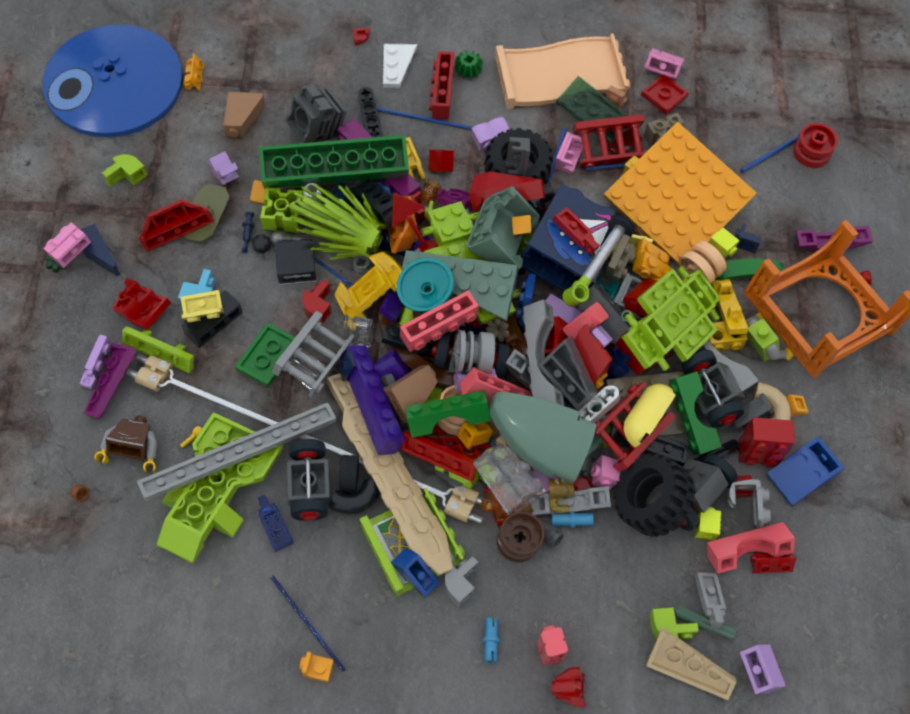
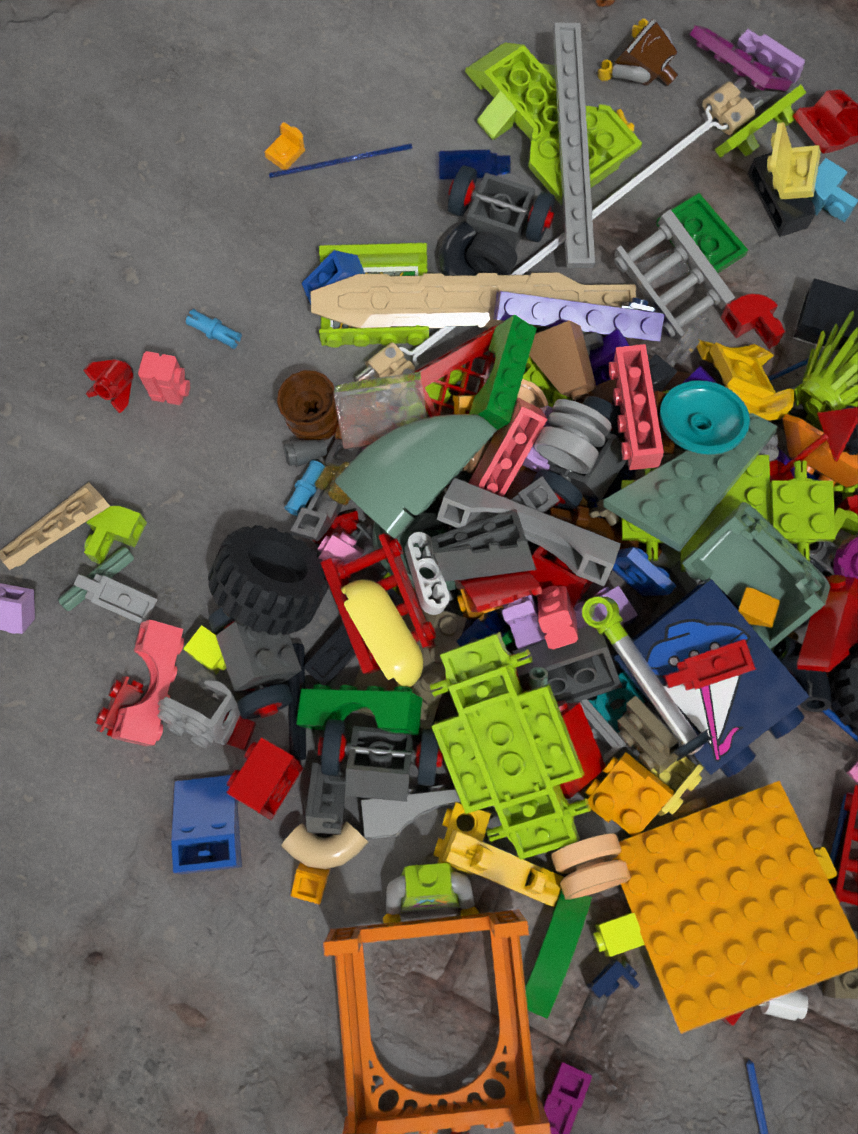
camera: 120 degrees right, 10 degrees up
(456, 585) = (295, 319): light grey brick -> none

